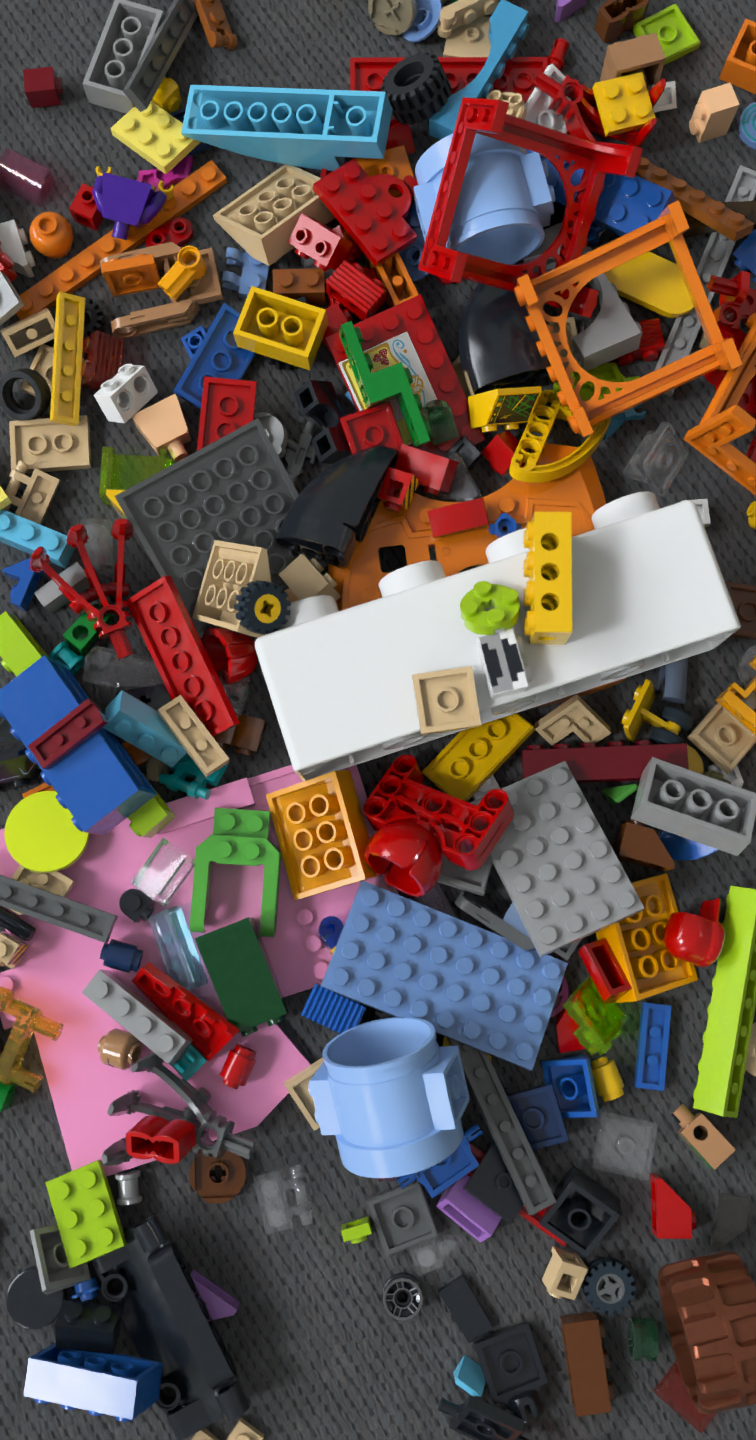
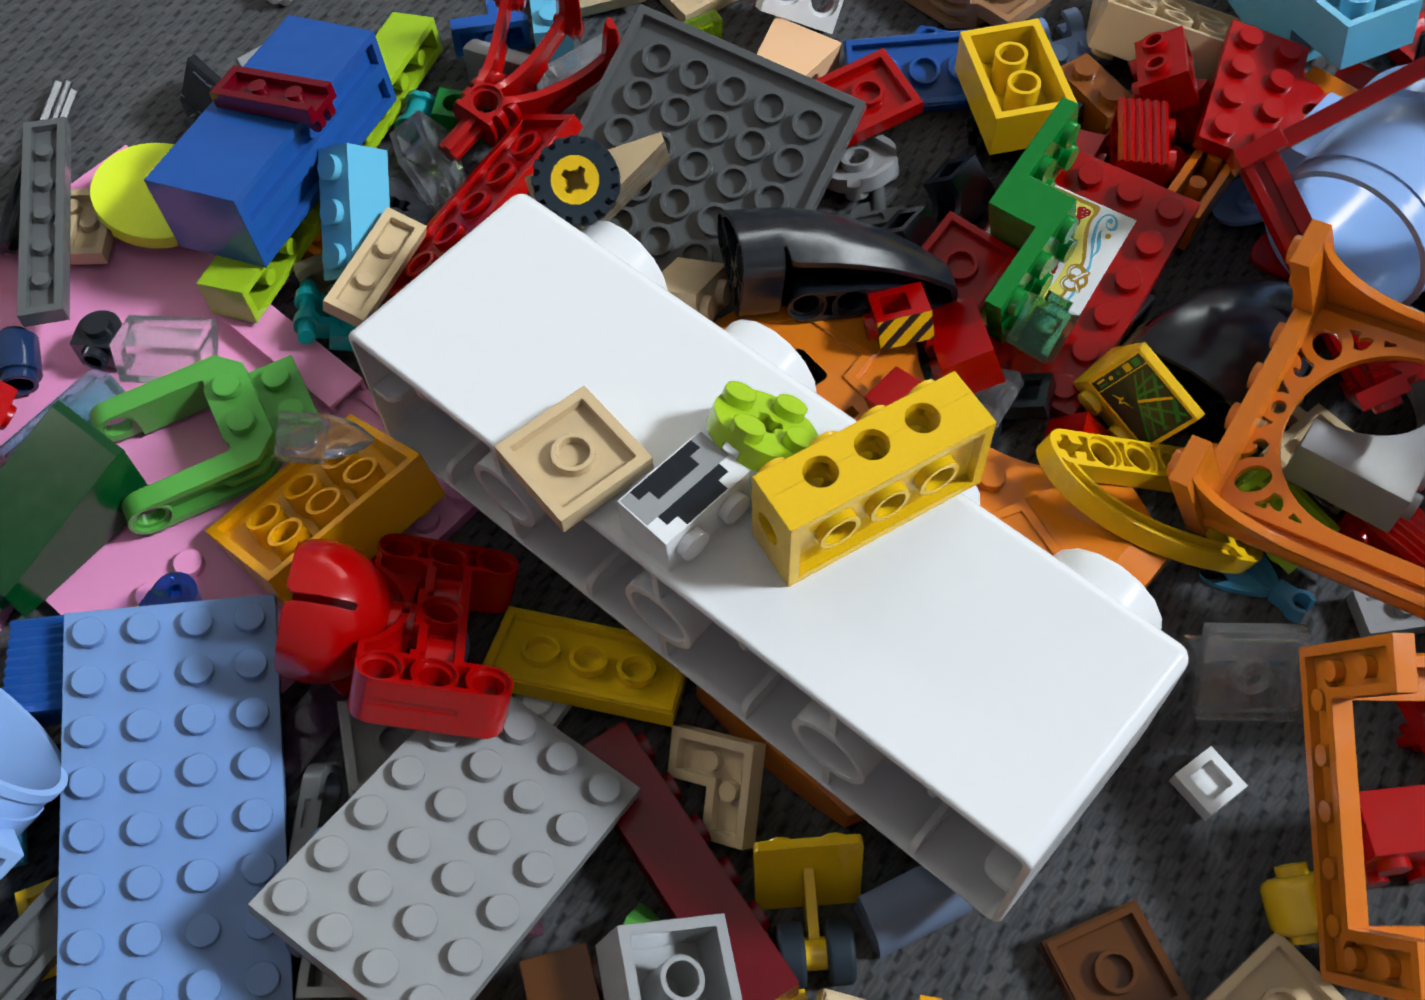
camera: 60 degrees right, 20 degrees down
(285, 817) = (317, 437): none -> clear plate

